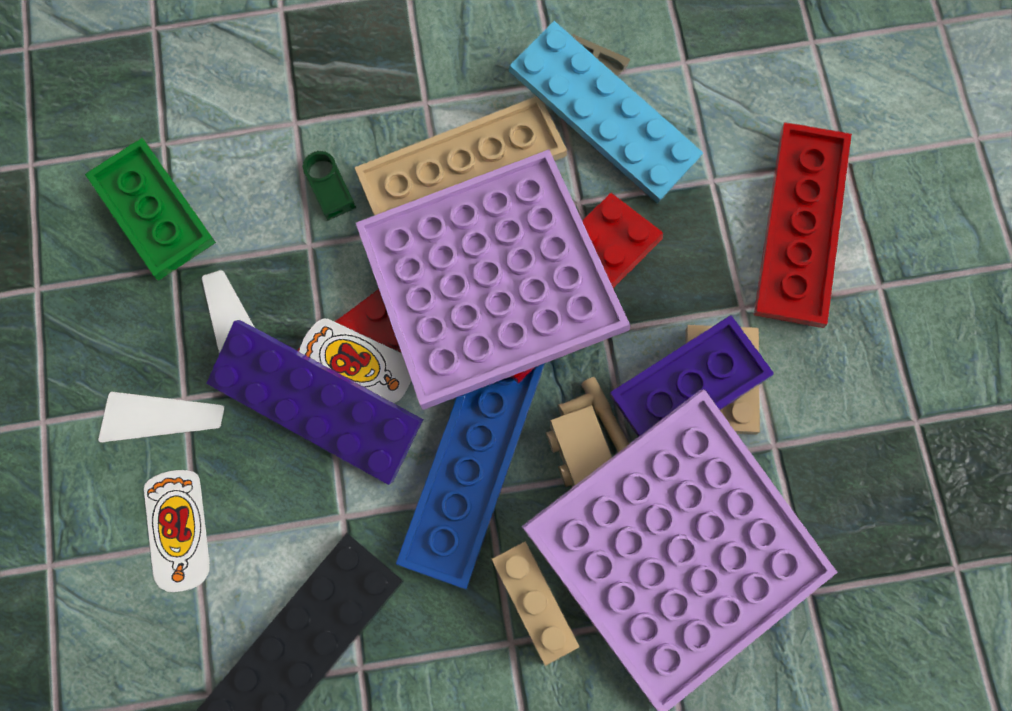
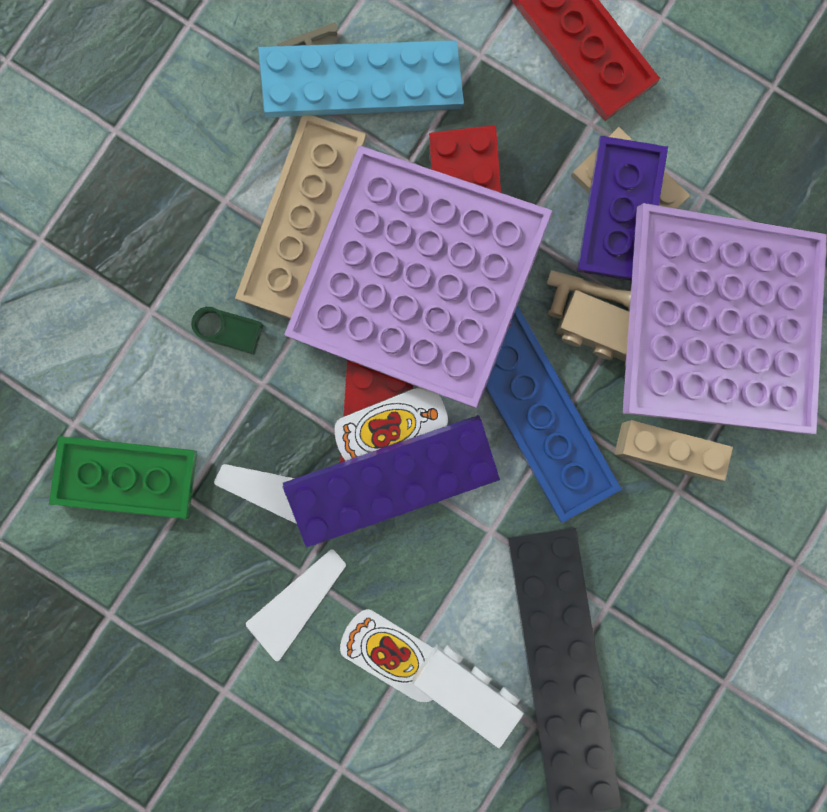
camera: 55 degrees left, 10 degrees up
(188, 612) = (469, 694): none -> white brick

